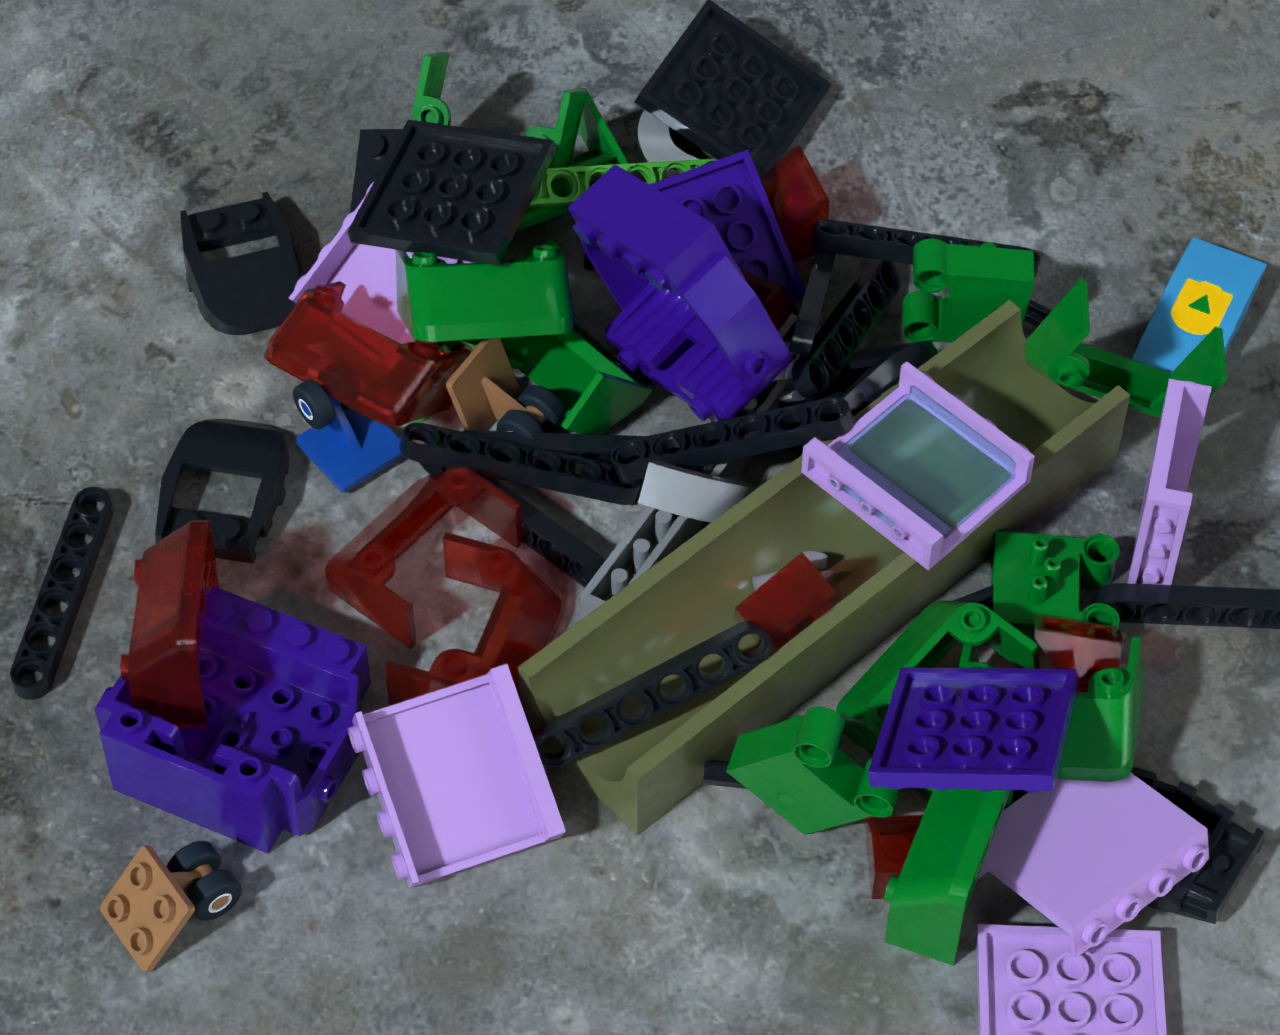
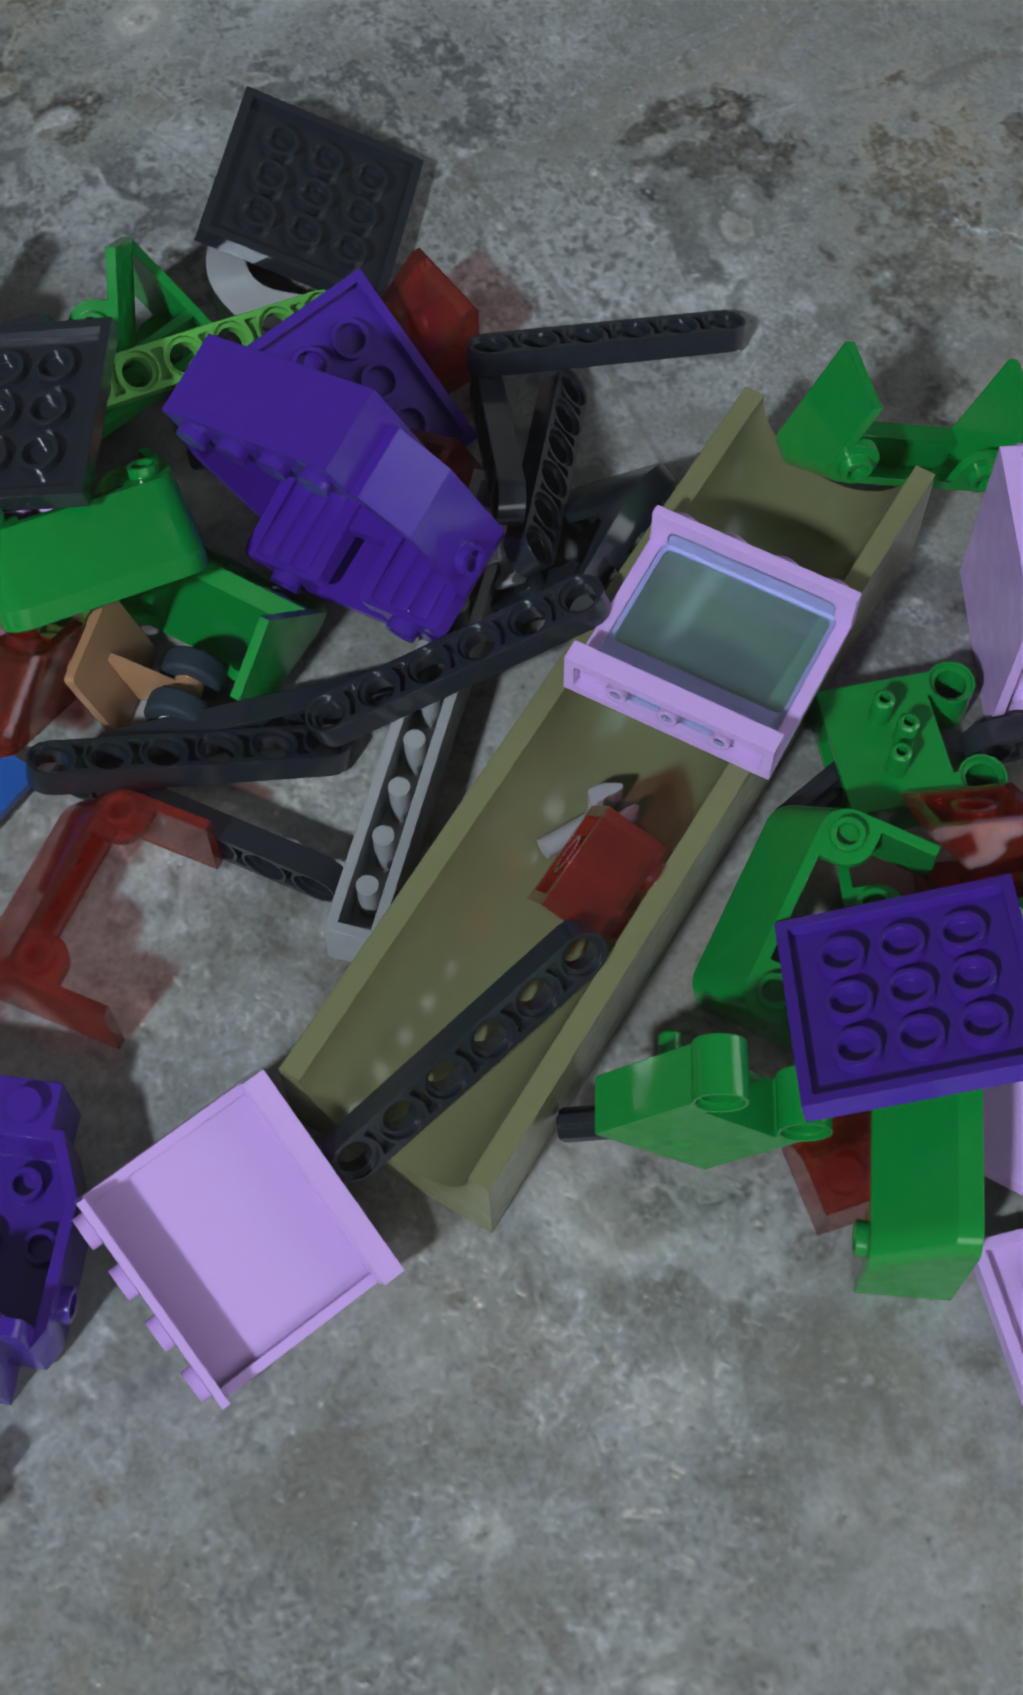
camera: 15 degrees left, 10 degrees up
(517, 628) = (252, 1004): clear red windscreen -> none
(691, 492) = (434, 749): light grey arch -> none
(973, 286) = (686, 384): green piece -> none
(1204, 292) = (952, 335): dark azure slope -> none

